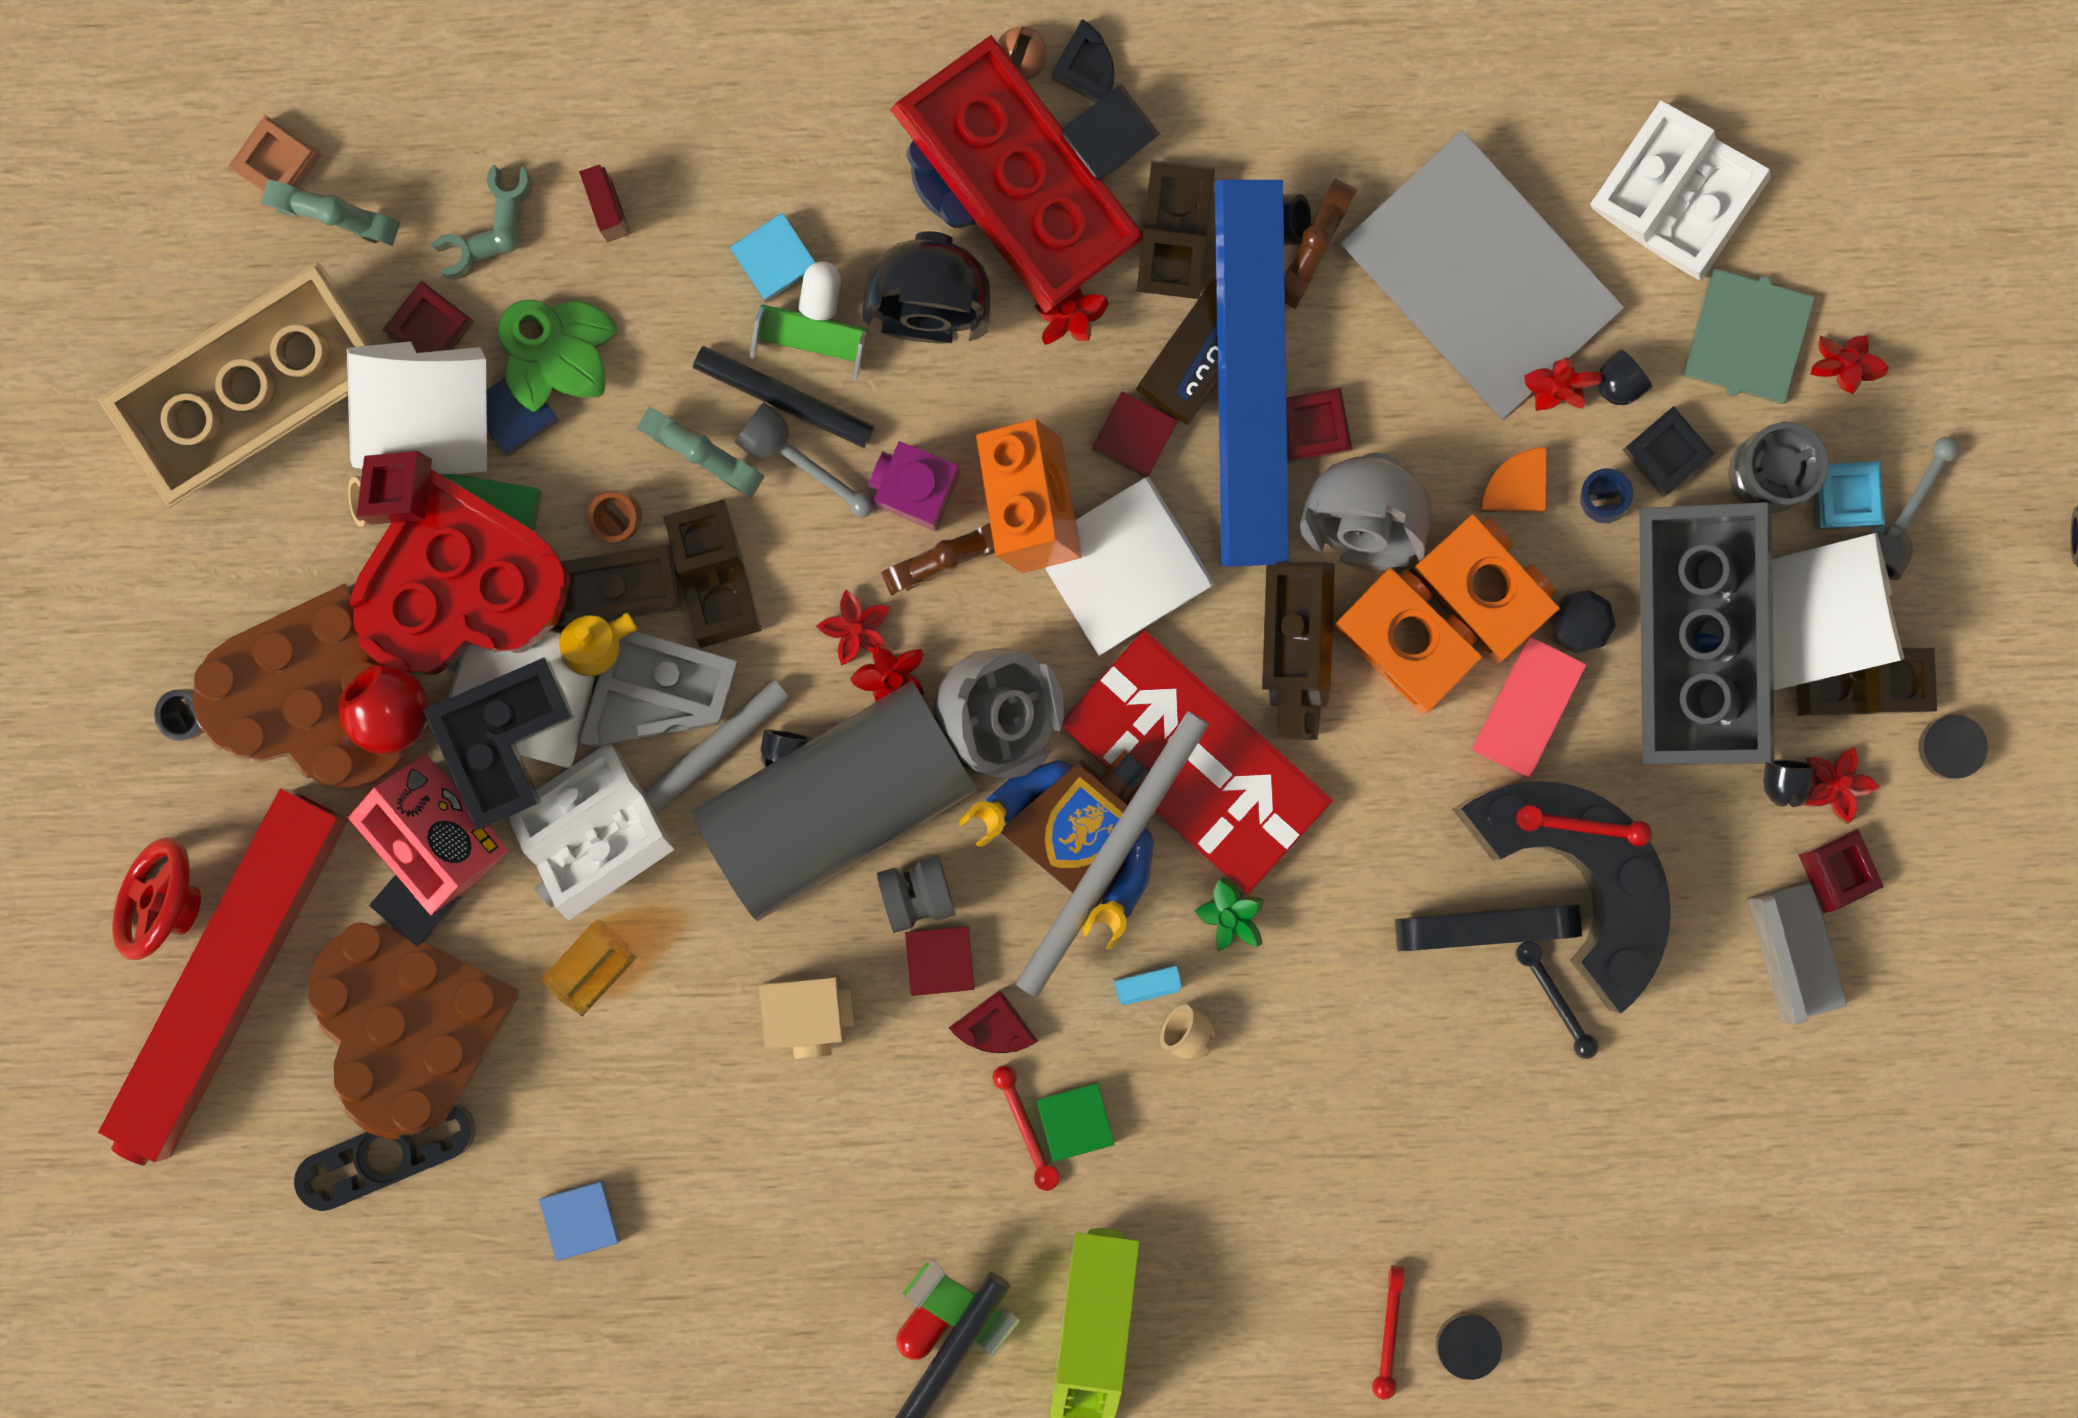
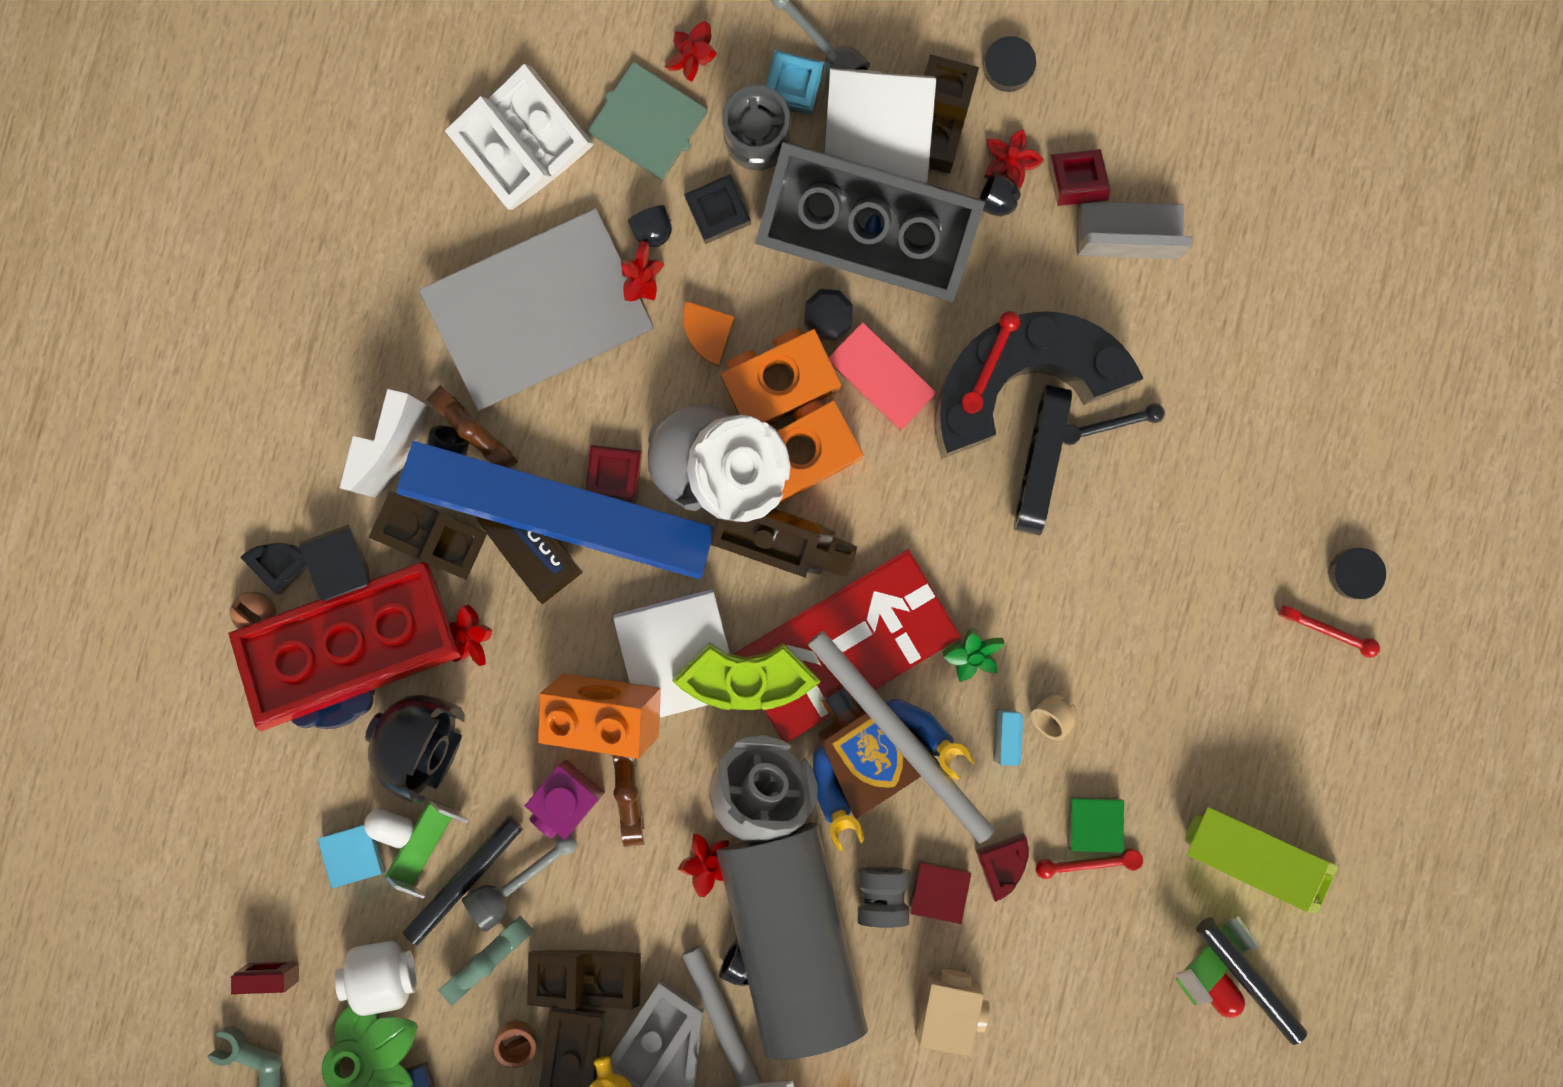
camera: 75 degrees left, 0 degrees up
(644, 332) = (376, 978): none -> white head
(854, 627) = (659, 879): red plant -> none
(1119, 656) = (745, 682): none -> lime tile
(1134, 434) = (577, 615): dark red tile -> none
(1245, 146) = (377, 462): none -> white slope
(1368, 568) = (738, 468): none -> white tile
(1606, 485) = (729, 262): dark blue hinge -> none

